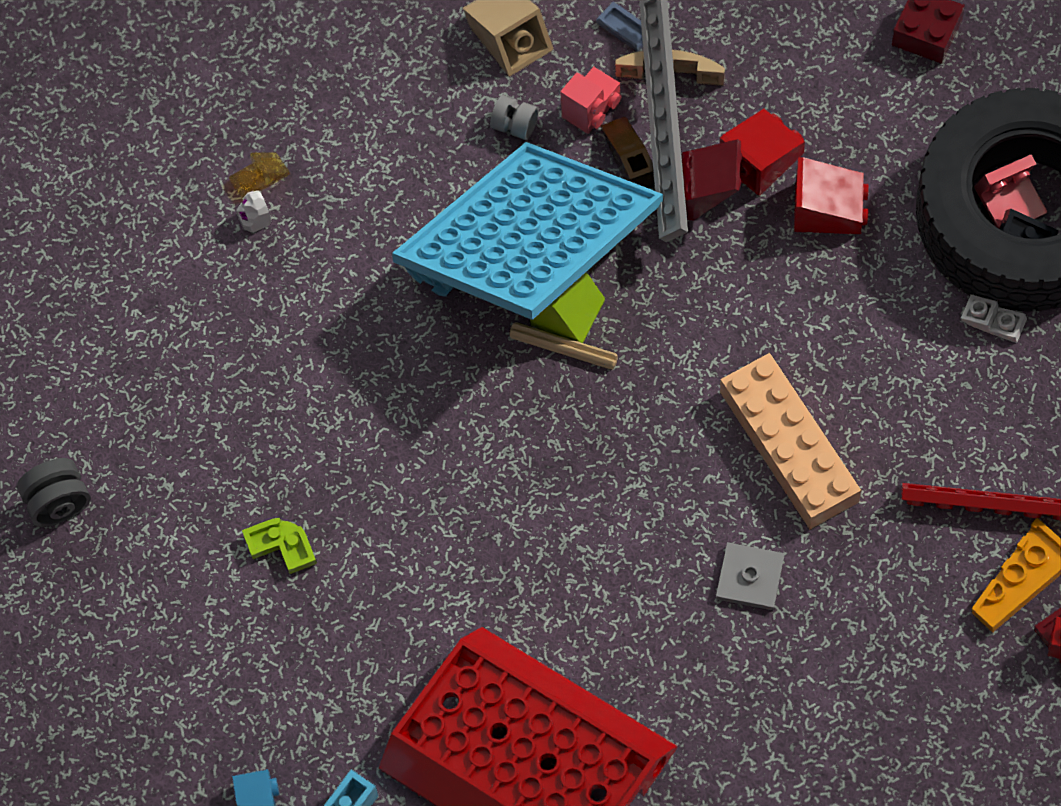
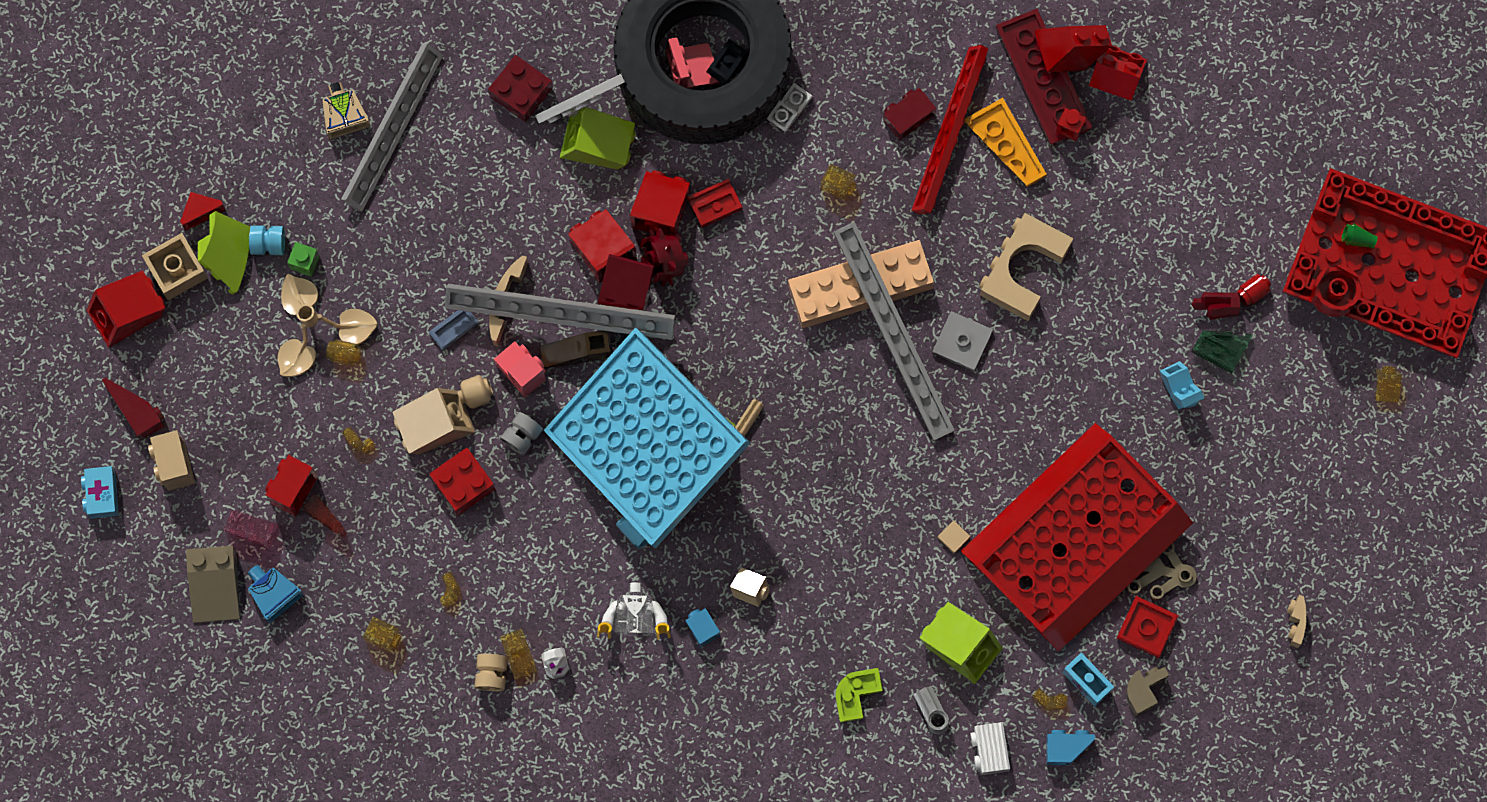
camera: 80 degrees left, 10 degrees up
(239, 148) = (490, 672): none -> tan wheel
(240, 711) = (991, 748): none -> white brick
(252, 32) = (382, 634): none -> clear yellow brick
(277, 631) = (931, 709): none -> light grey piece
(313, 770) = (1050, 702): none -> clear yellow arm
(319, 92) = (452, 591): none -> clear yellow arm
(324, 279) = (634, 616): none -> torso
(326, 356) = (702, 627): none -> dark azure brick
(364, 648) = (961, 642): none -> lime slope
(384, 395) = (750, 587): none -> brick
(444, 70) = (462, 481): none -> red brick
(499, 616) = (953, 537): none -> tan tile
(553, 61) = (475, 391): none -> tan head
(734, 482) = (893, 331): none -> light grey plate
(762, 212) = (665, 254): none -> dark red brick
(835, 600) = (1027, 235): none -> tan arch
(848, 261) = (715, 203): none -> red plate
(890, 119) = (598, 139): none -> lime slope
(912, 389) = (838, 182): none -> clear yellow brick
(927, 75) = (579, 101): none -> white wing
(1025, 451) = (909, 113): none -> dark red brick

